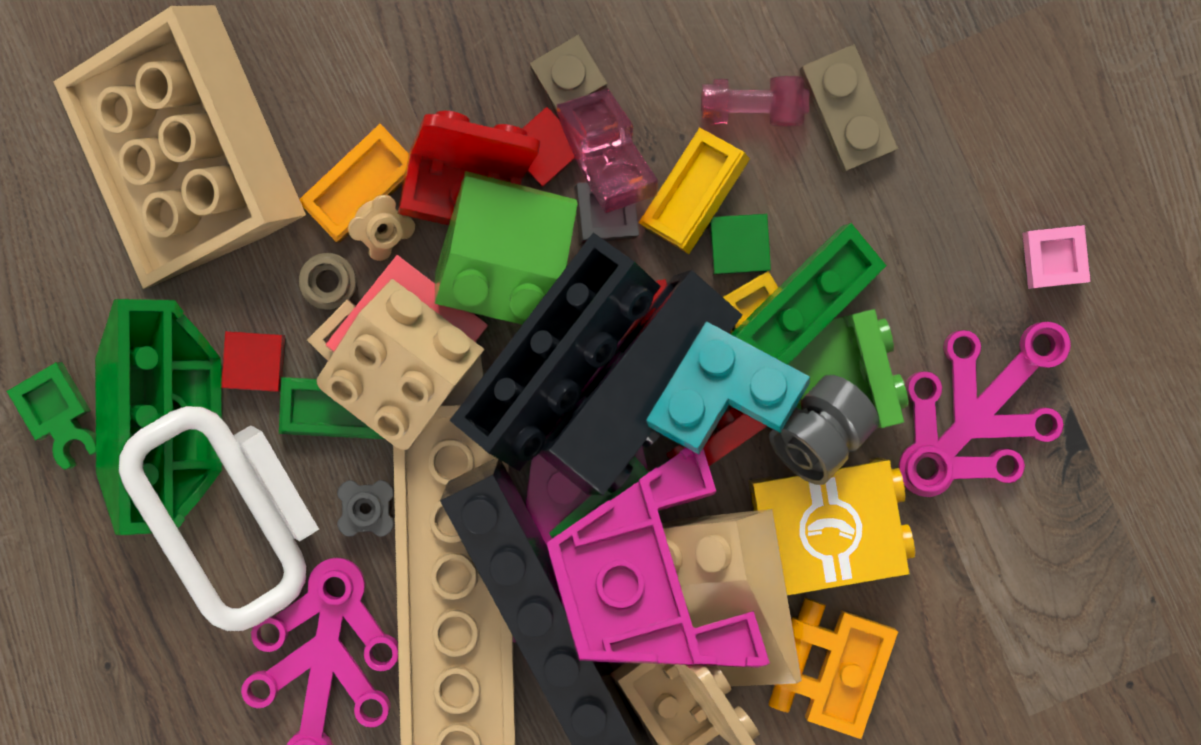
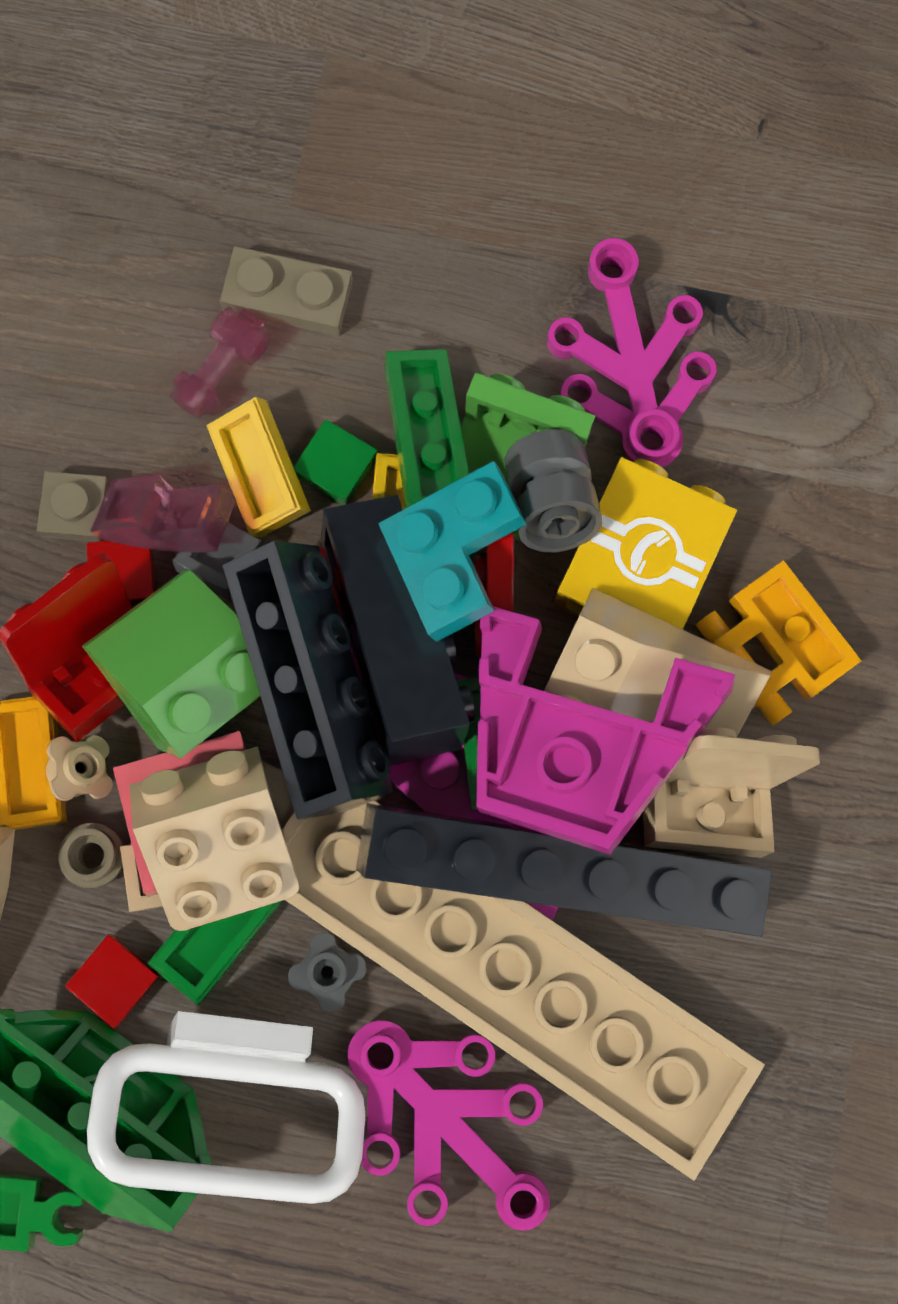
camera: 60 degrees left, 10 degrees down
(1056, 257) = (542, 205): bright pink plate -> none

